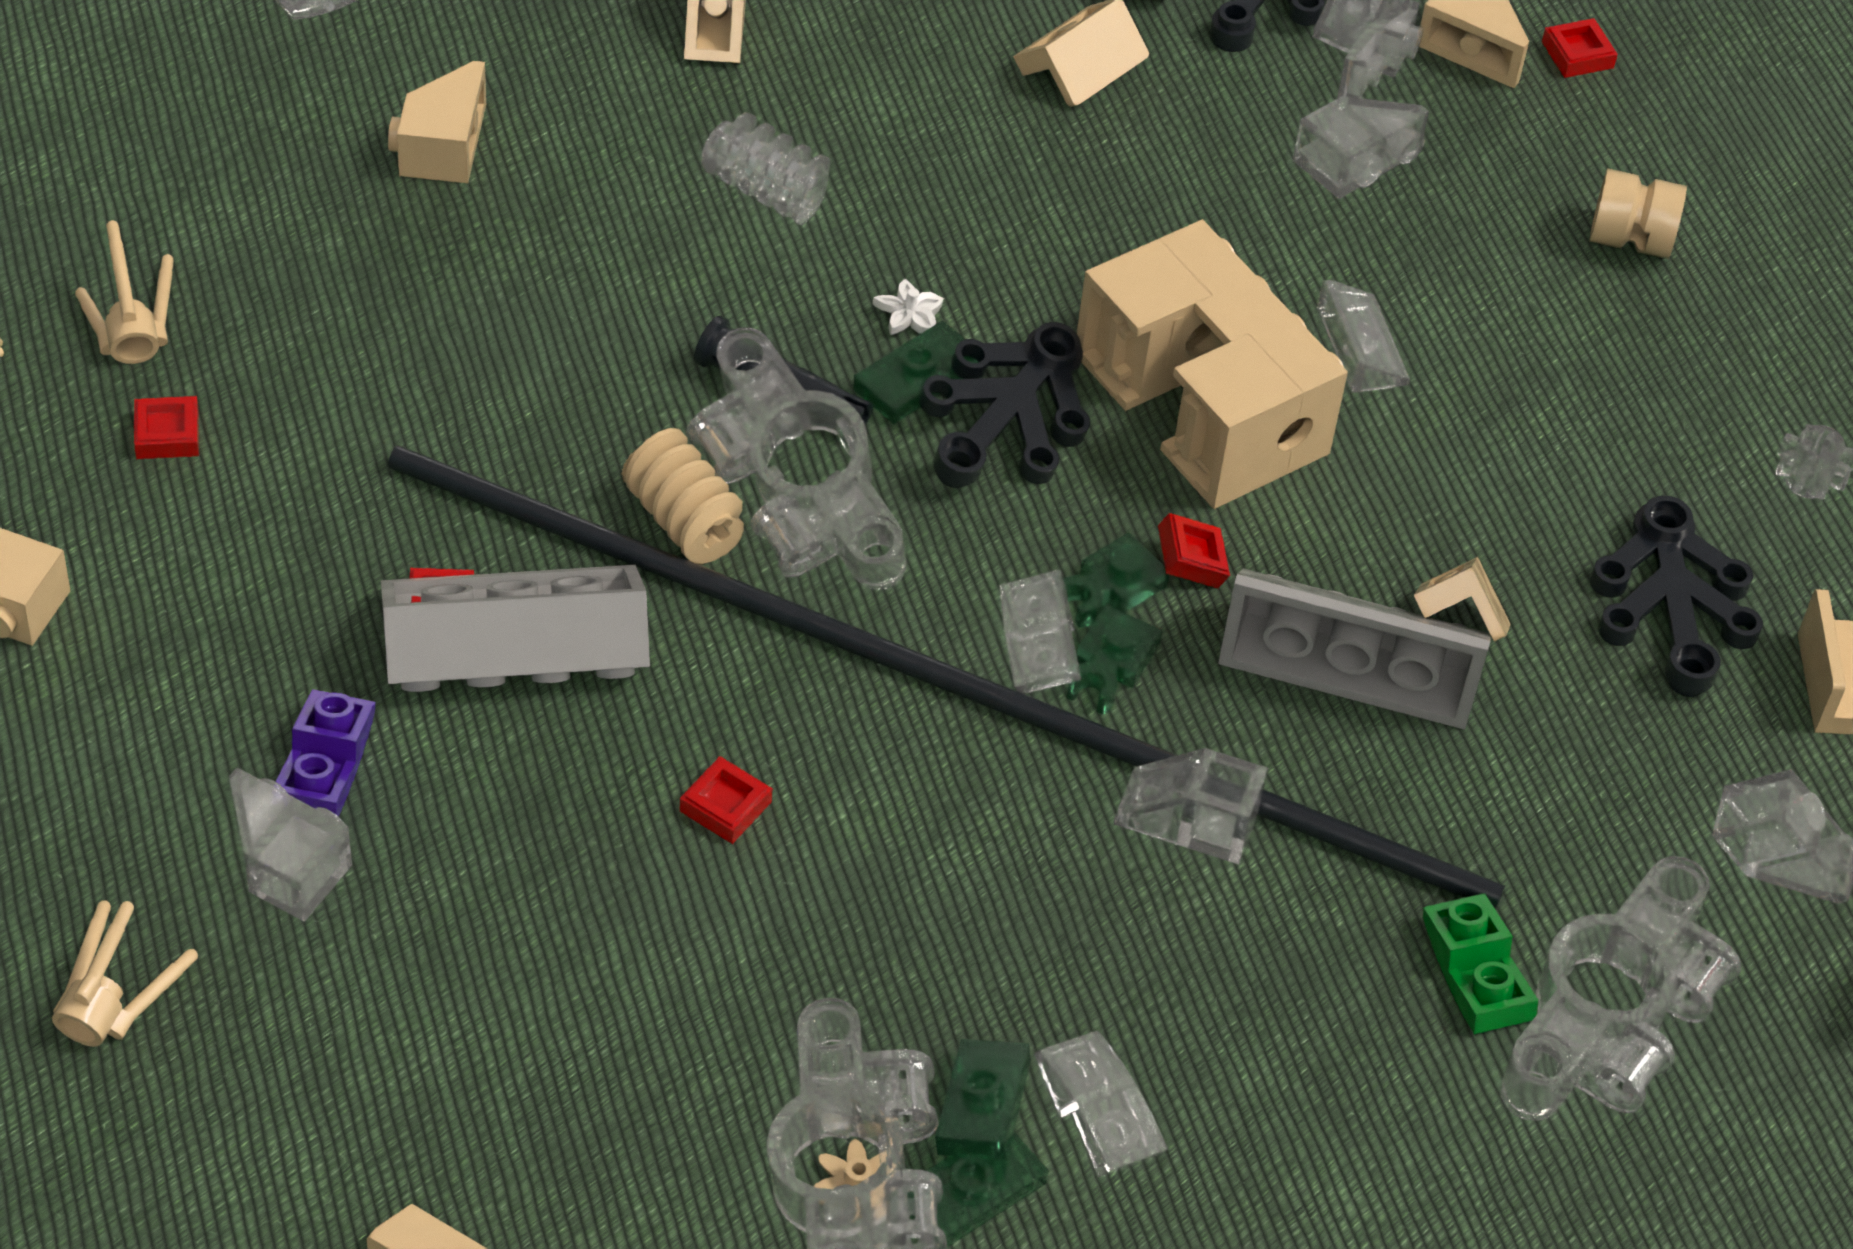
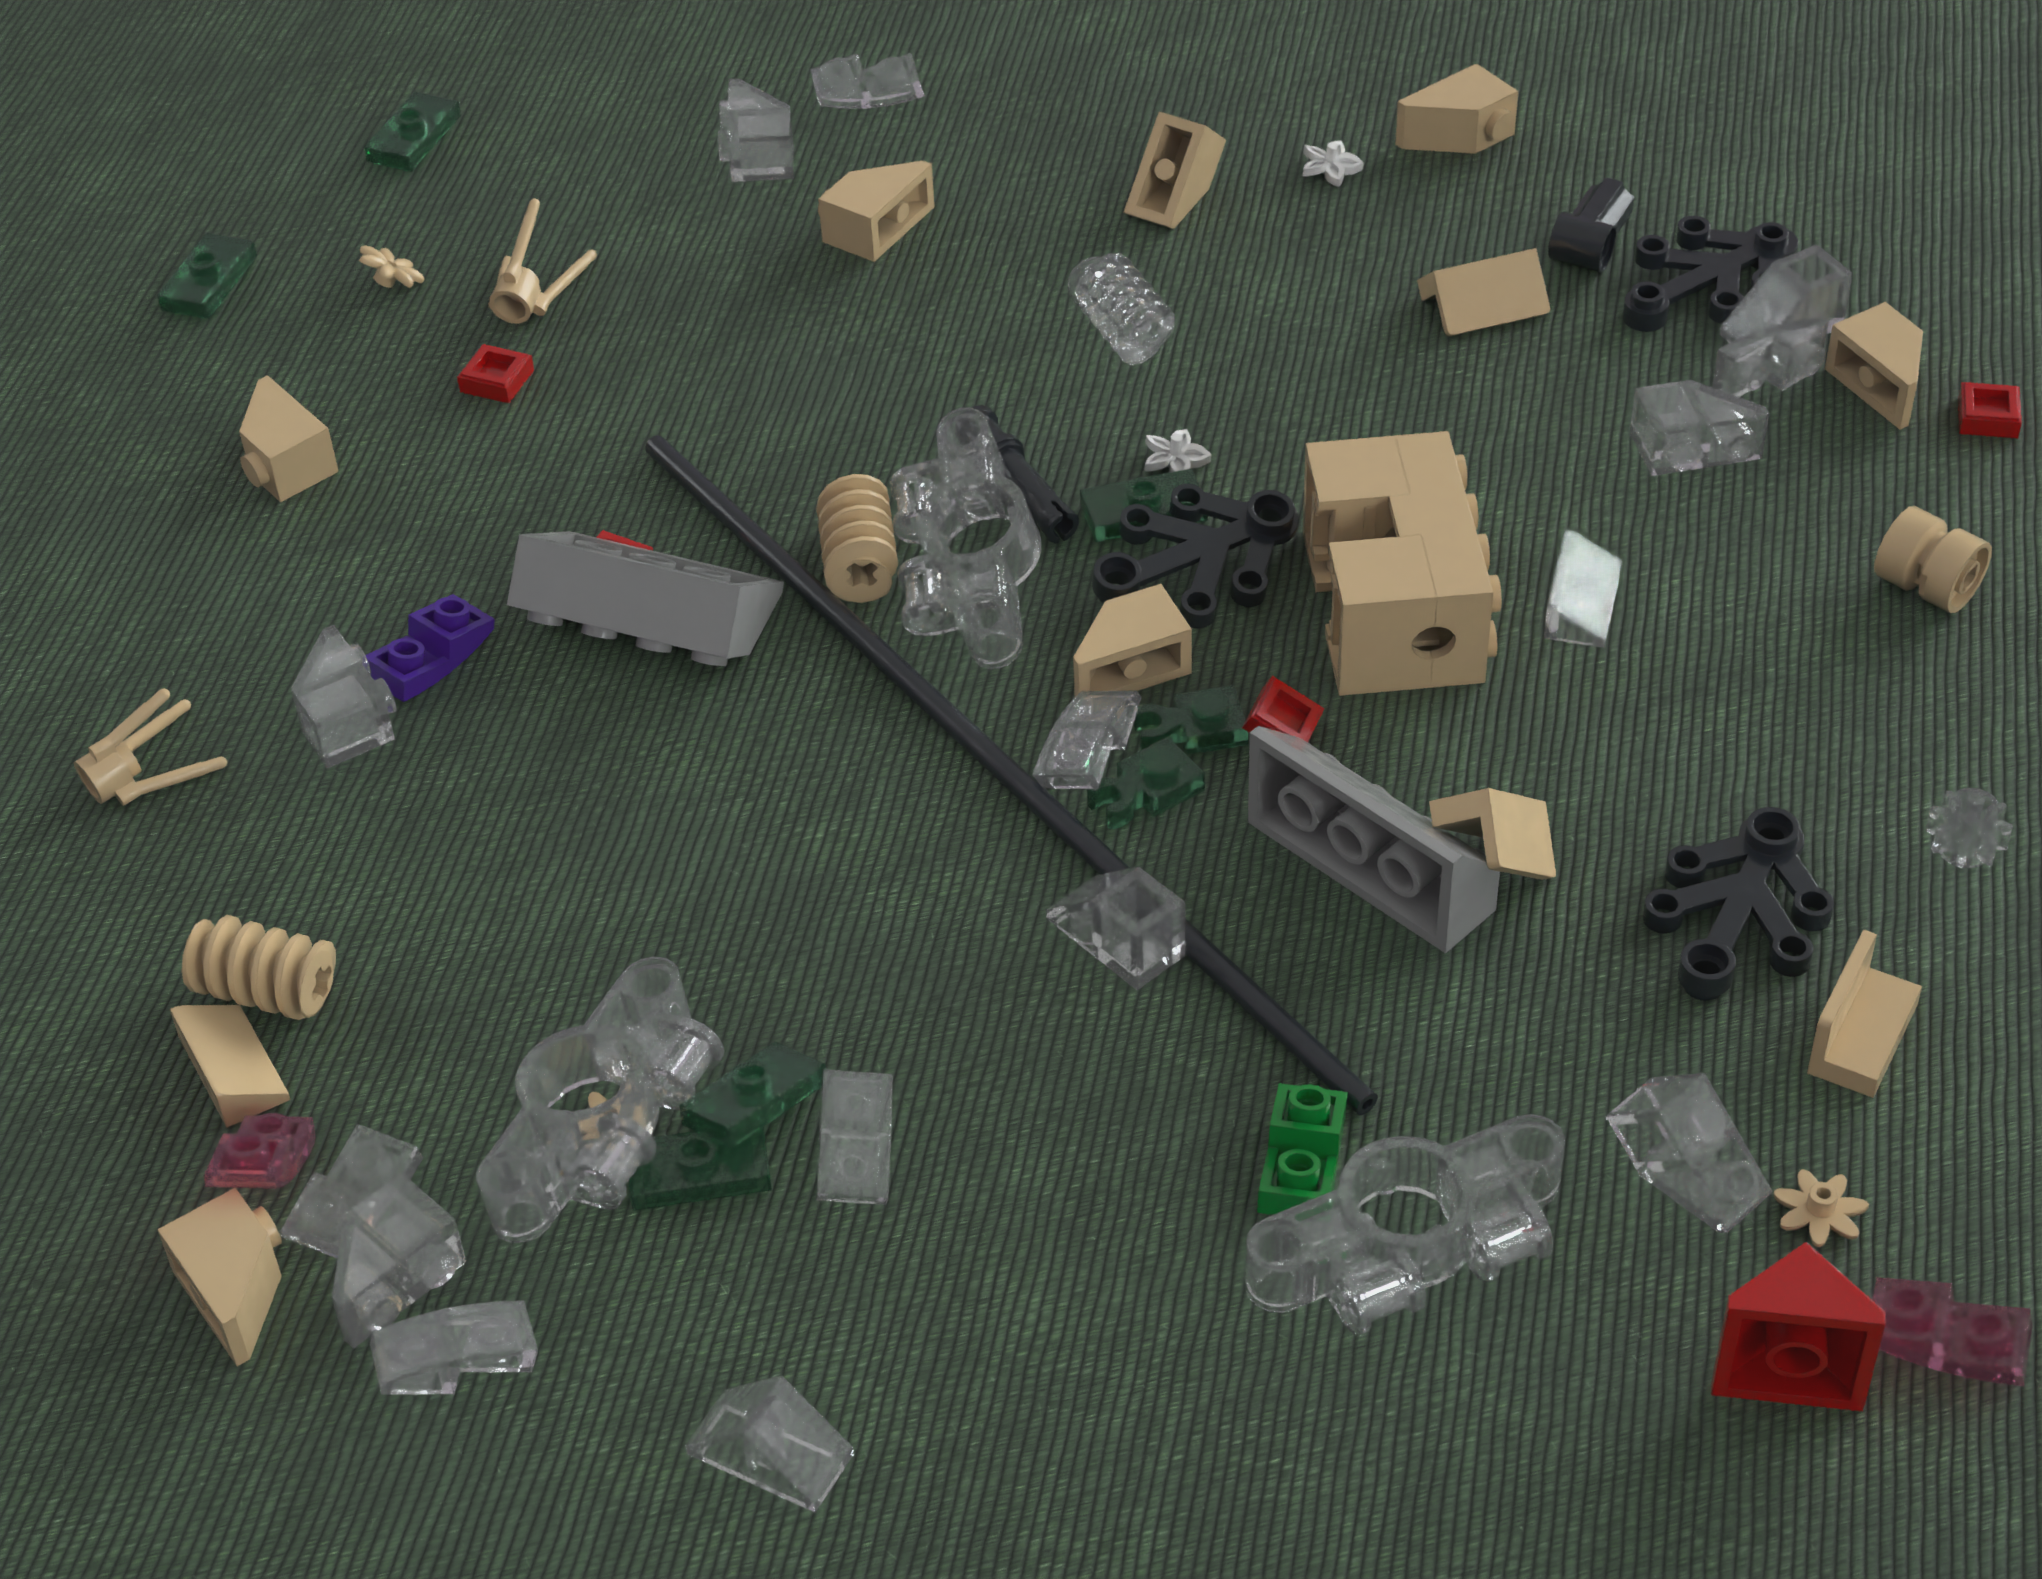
camera: 35 degrees right, 5 degrees down
(259, 71) = (755, 134): none -> clear slope
(424, 1157) = (259, 967): none -> tan piece
(726, 800) = (725, 787): red tile -> none
(1018, 520) = (1134, 644): none -> tan slope

